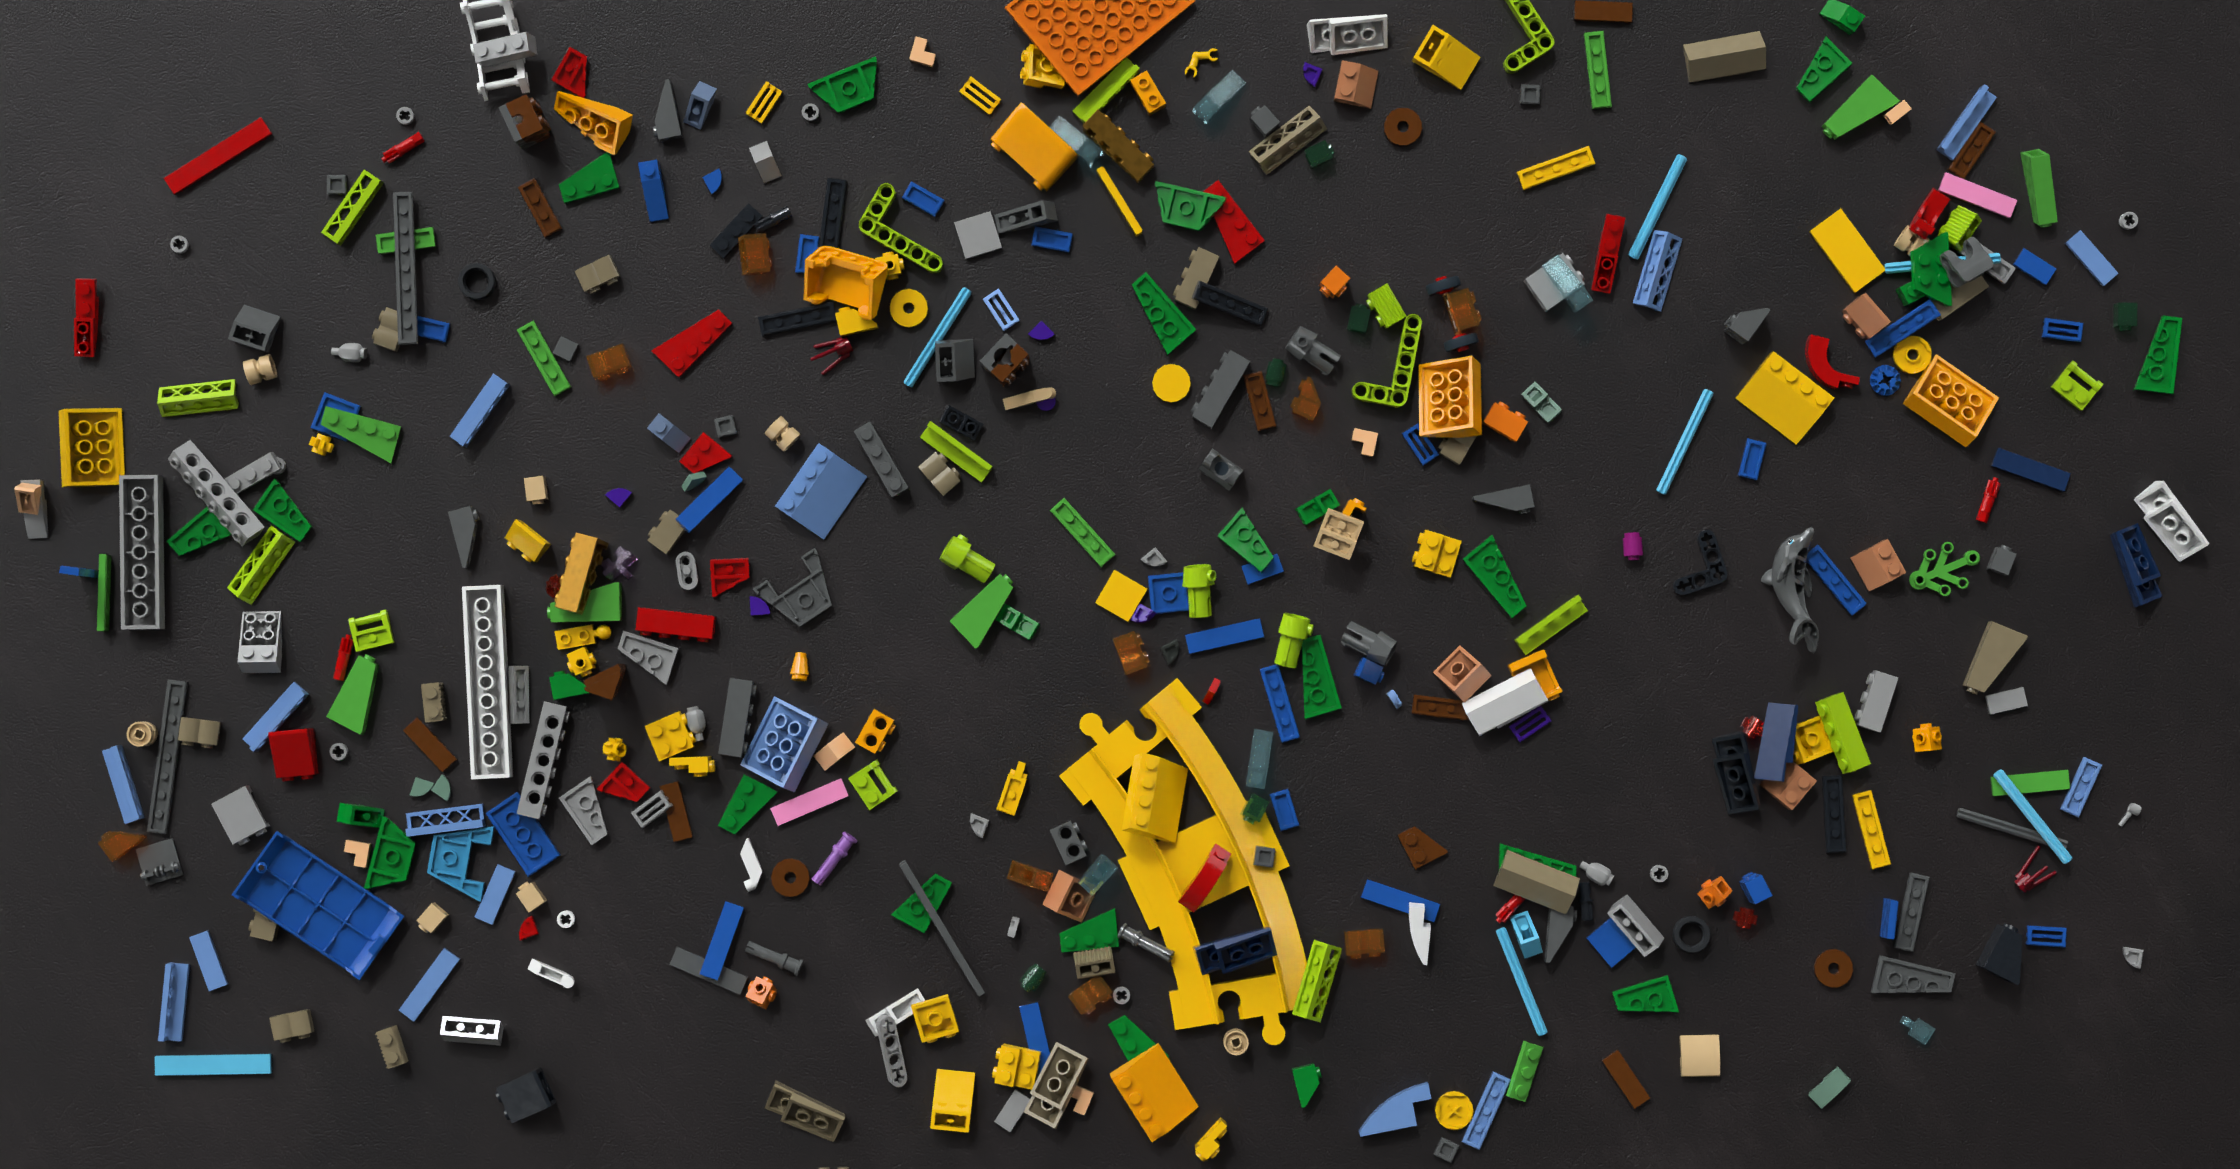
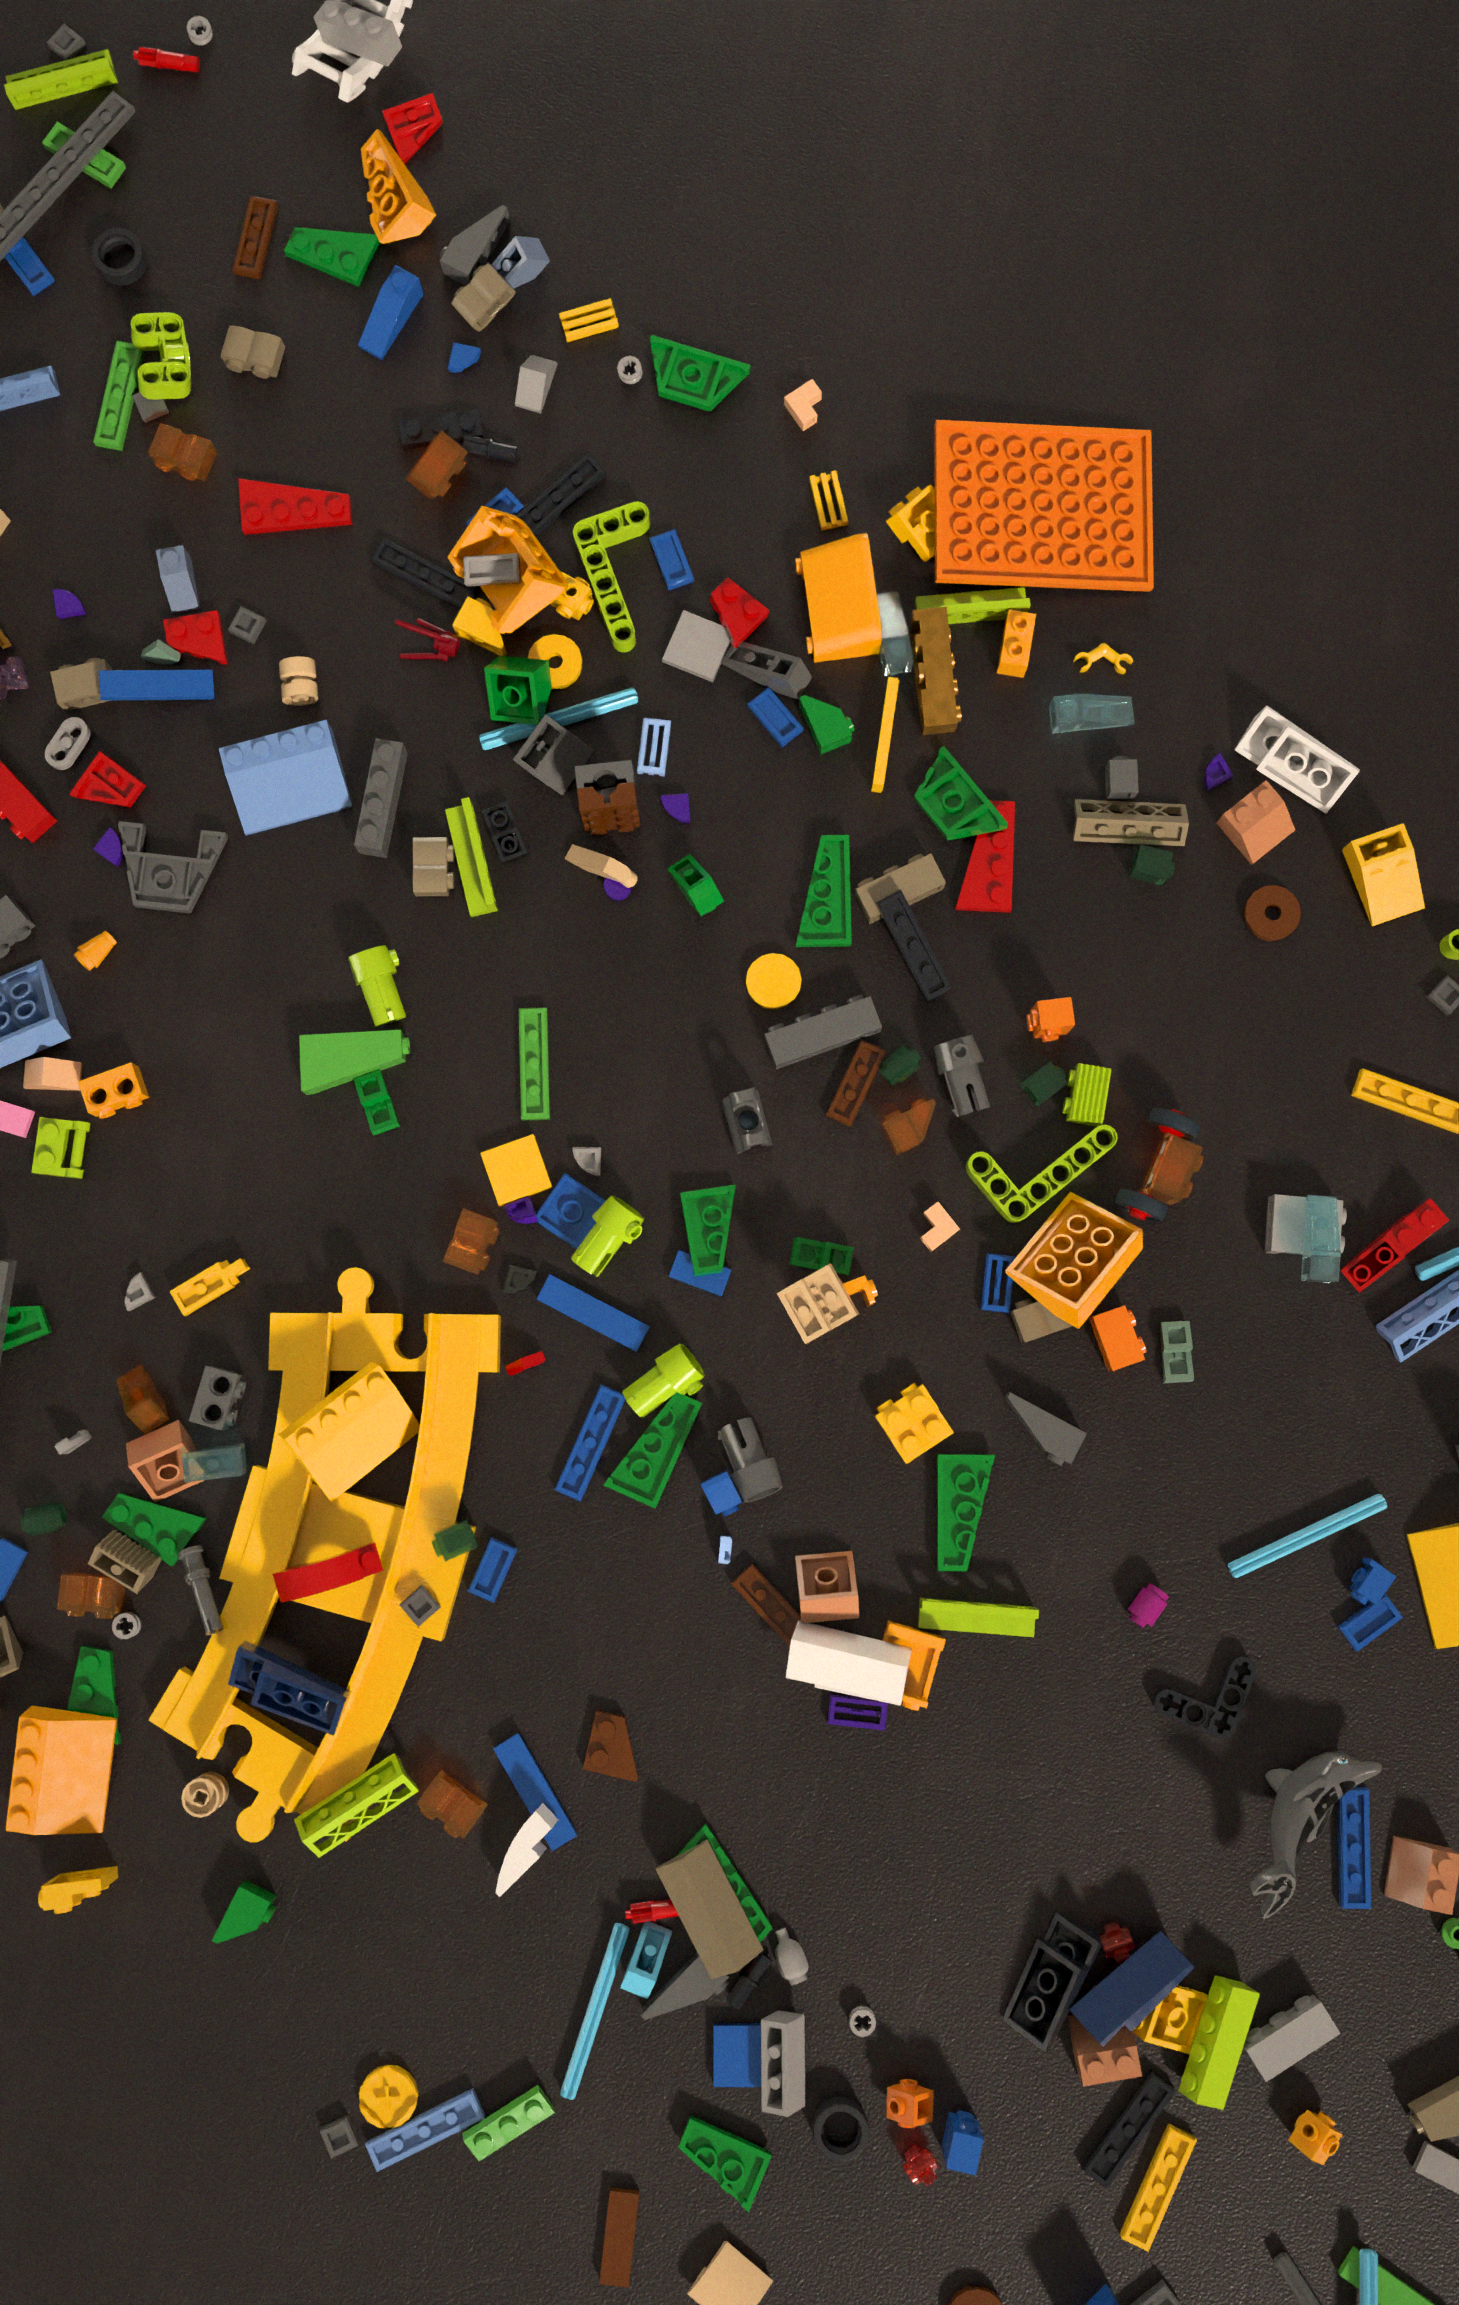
camera: 45 degrees right, 5 degrees down
(525, 121) = (312, 122): reddish brown piece -> none
(557, 312) = (173, 355): none -> lime beam
(698, 139) = (483, 297): none -> dark tan brick
(836, 287) = (492, 569): none -> light grey tile
(904, 340) = (518, 689): none -> green slope
(983, 198) = (737, 610): none -> red wing
(1083, 221) = (826, 724): none -> green slope
(1087, 366) = (696, 885): none -> green slope
(1259, 759) = (512, 1487): clear light blue slope -> none
(1396, 1111) = (318, 2039): medium blue slope -> none
(1735, 439) = (1370, 1582): none -> blue brick

